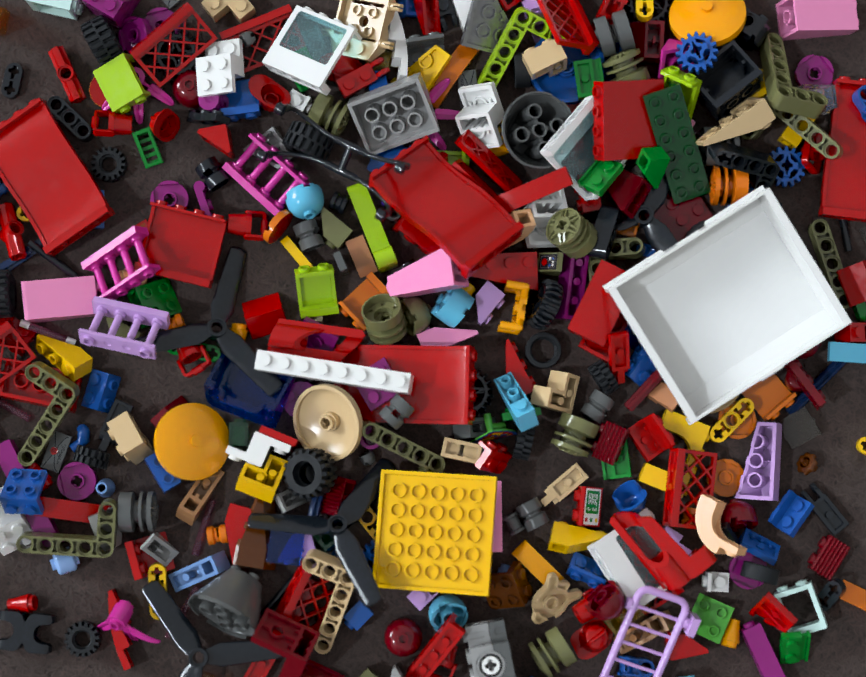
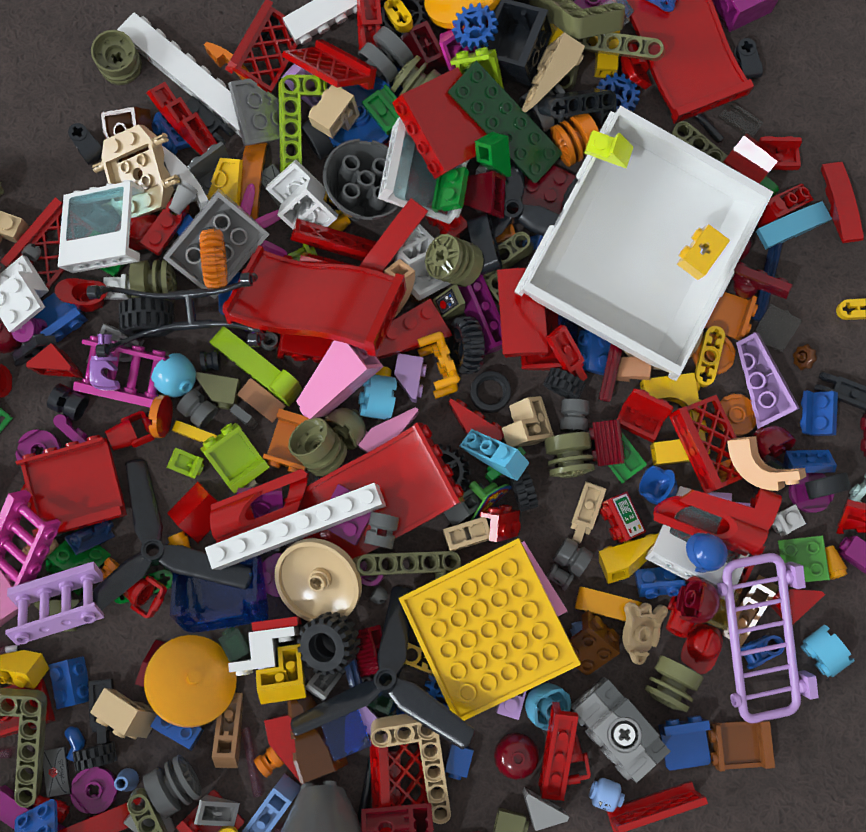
camera: 30 degrees left, 5 degrees down
(174, 289) = (90, 536): none -> dark blue hinge
(246, 168) = (97, 365): none -> medium lavender piece
(276, 273) = (185, 463): none -> lime bracket
(385, 130) = (213, 258): none -> orange gear
(388, 63) = (183, 197): none -> light grey cone
(633, 568) = (706, 552): none -> blue helmet
(740, 219) = (610, 149): none -> neon yellow slope
(776, 338) = (712, 244): none -> yellow brick

